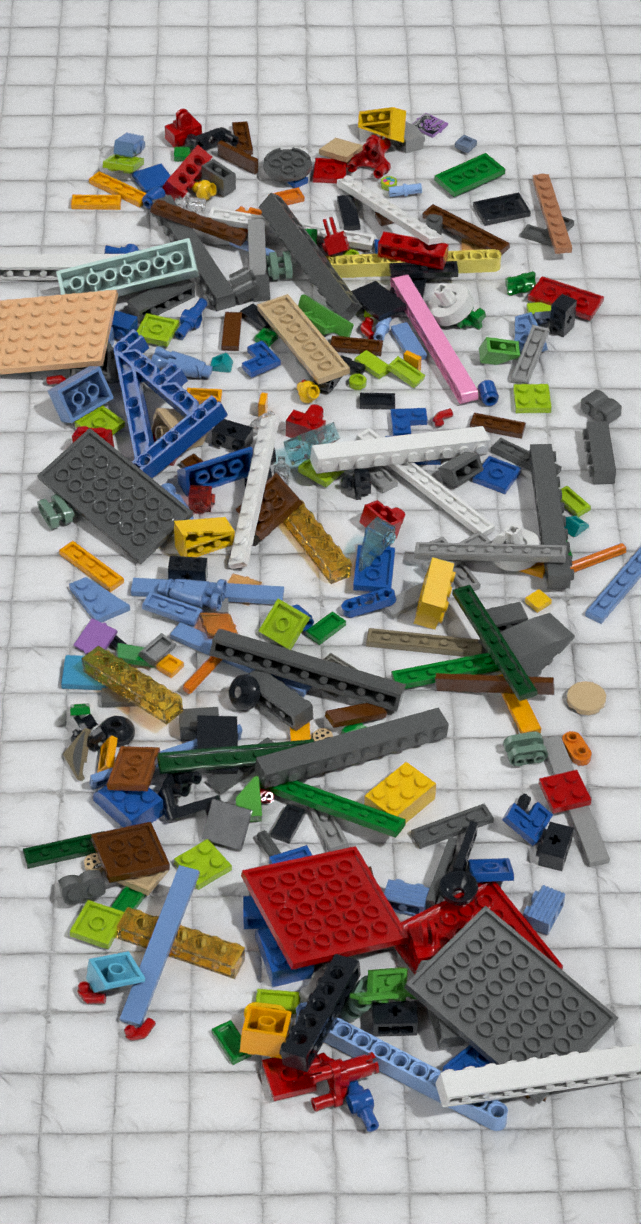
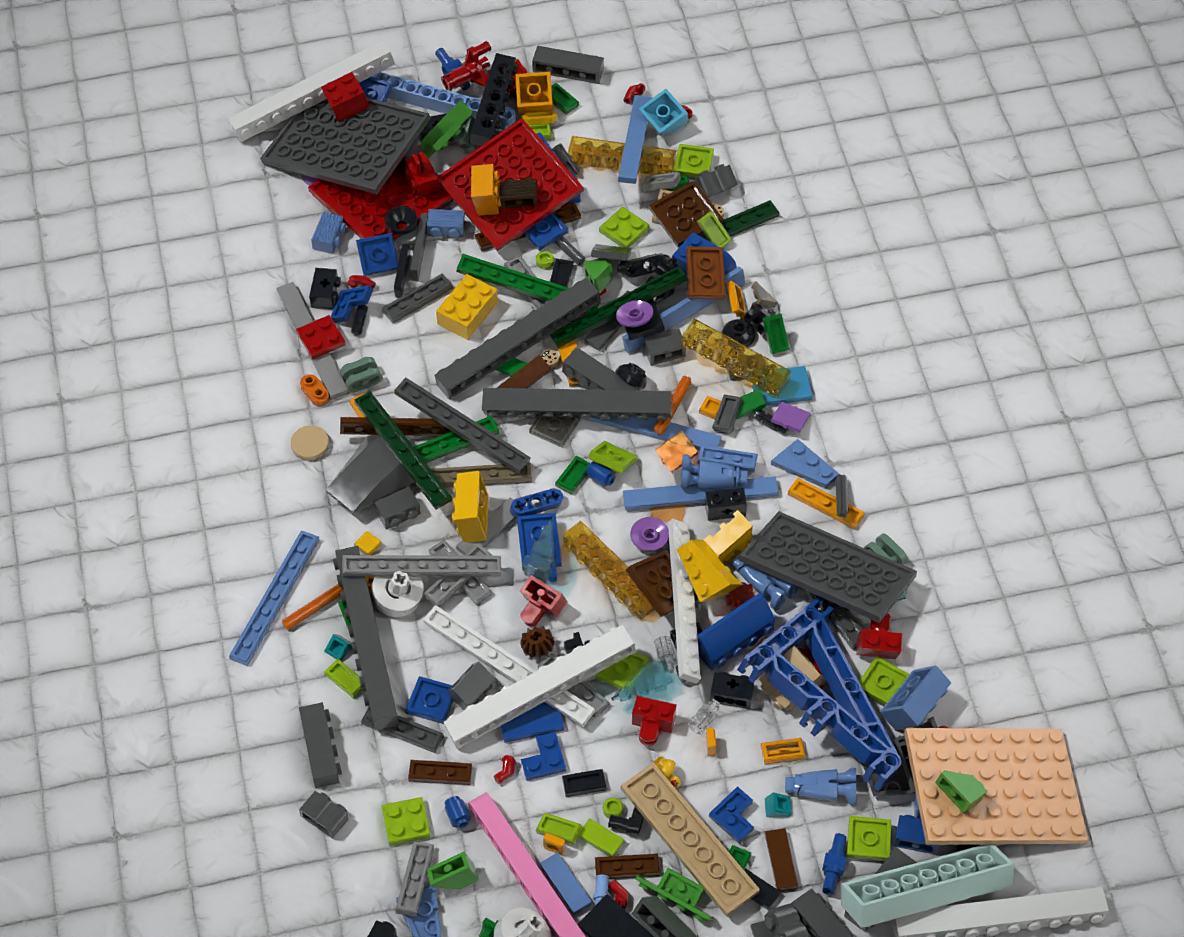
camera: 170 degrees right, 10 degrees up
(75, 309) = (962, 789): none -> bright green slope
(75, 559) = (841, 496): none -> dark grey axle
(105, 825) = (714, 230): none -> lime tile
(144, 898) = (661, 181): none -> light grey plate
(211, 1079) = (568, 64): none -> dark grey brick
(226, 721) = (634, 313): none -> medium lavender dish
(227, 499) = (706, 571): none -> yellow wedge
(250, 941) = (566, 159): none -> dark grey axle
(267, 560) = (649, 527): none -> medium lavender dish
(301, 840) = (544, 260): none -> lime tile
(317, 876) = (519, 193): none -> dark brown brick
(355, 879) = (485, 189): none -> light orange brick
(394, 492) = (537, 642): none -> reddish brown gear
(430, 663) = (462, 425): none -> dark grey plate
(505, 1038) = (345, 96): none -> red brick
(514, 853) = (361, 279): none -> red arm

